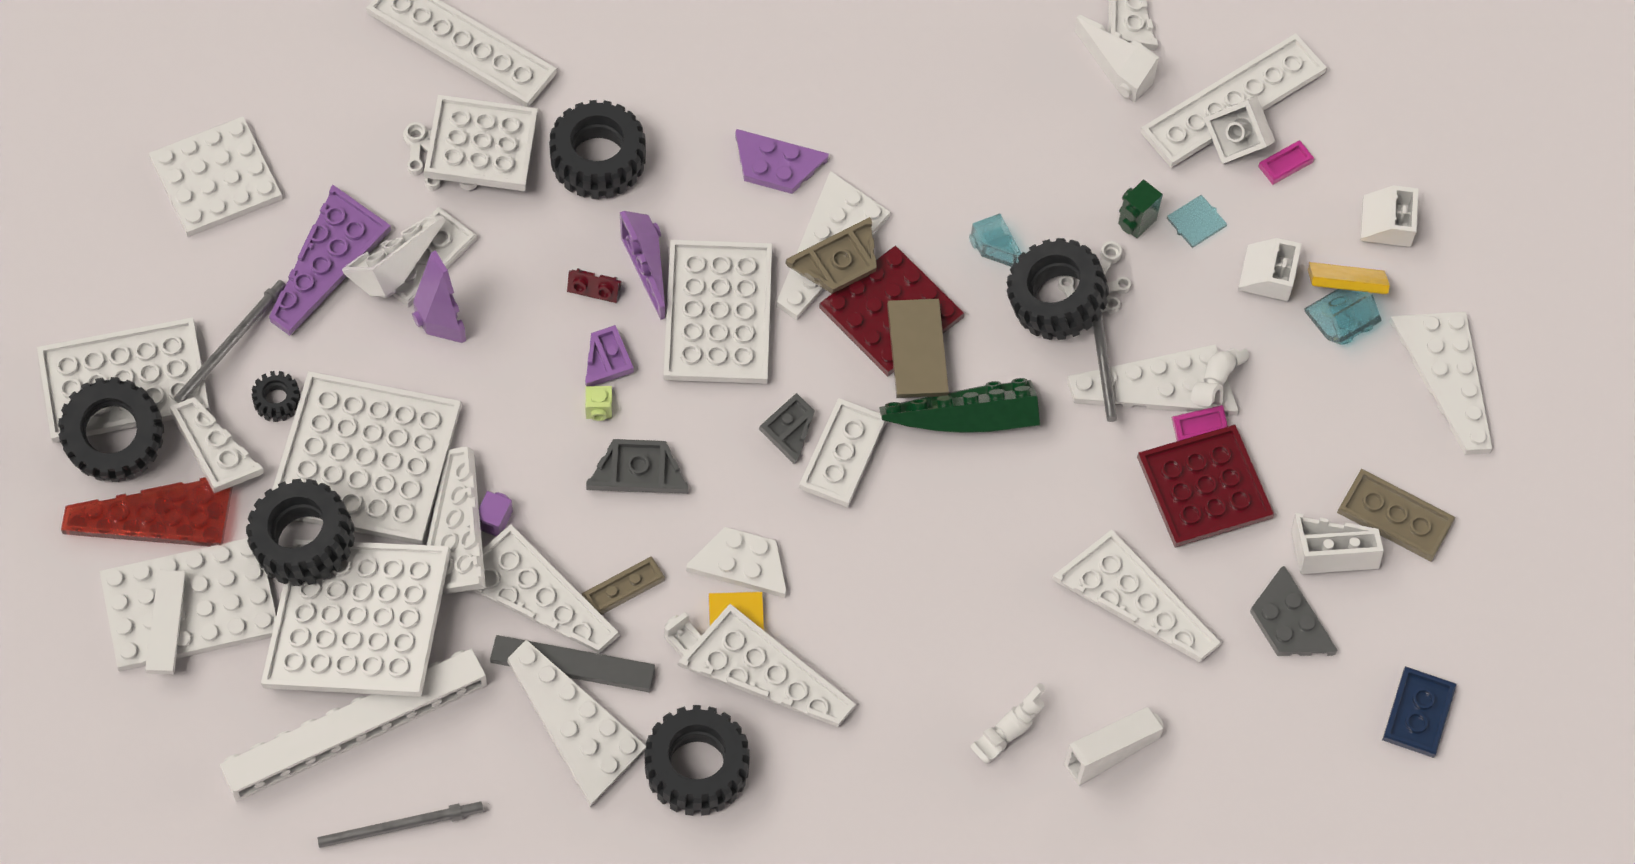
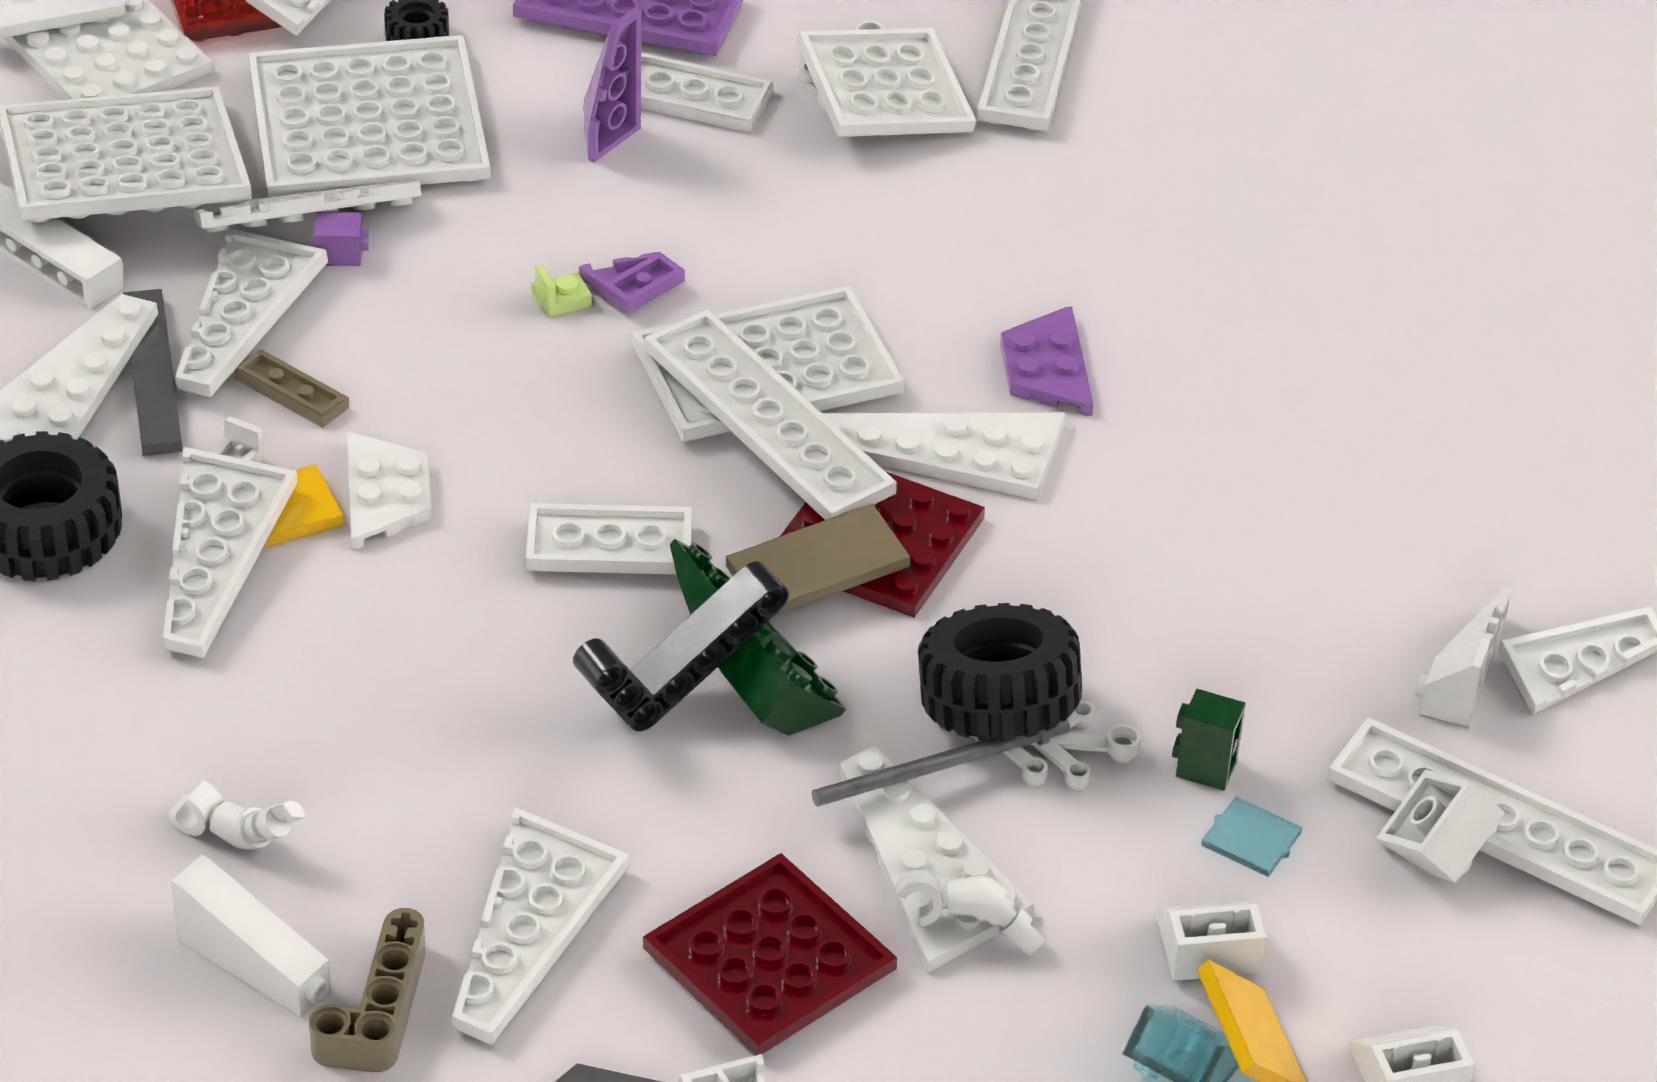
camera: 70 degrees right, 20 degrees down
(286, 505) = (211, 63): black tyre -> none
(390, 266) = (669, 54): white wedge -> none
(589, 285) = (740, 240): dark red hinge -> none
(591, 122) = (942, 179): black tyre -> none
(638, 468) = (478, 351): dark grey wing -> none
(642, 244) = (819, 258): medium lavender wedge -> none
(782, 327) = (769, 415): none -> white plate
(789, 427) = (622, 476): dark grey wing -> none
(839, 258) = (918, 443): dark tan wing -> none
(981, 438) = (687, 653): none -> black beam
(994, 240) = (1066, 595): clear light blue slope -> none
(1165, 689) = (373, 1033): none -> dark tan beam
(1199, 422) = (880, 916): dark pink tile -> none
(1286, 162) = (1434, 917): dark pink tile -> none

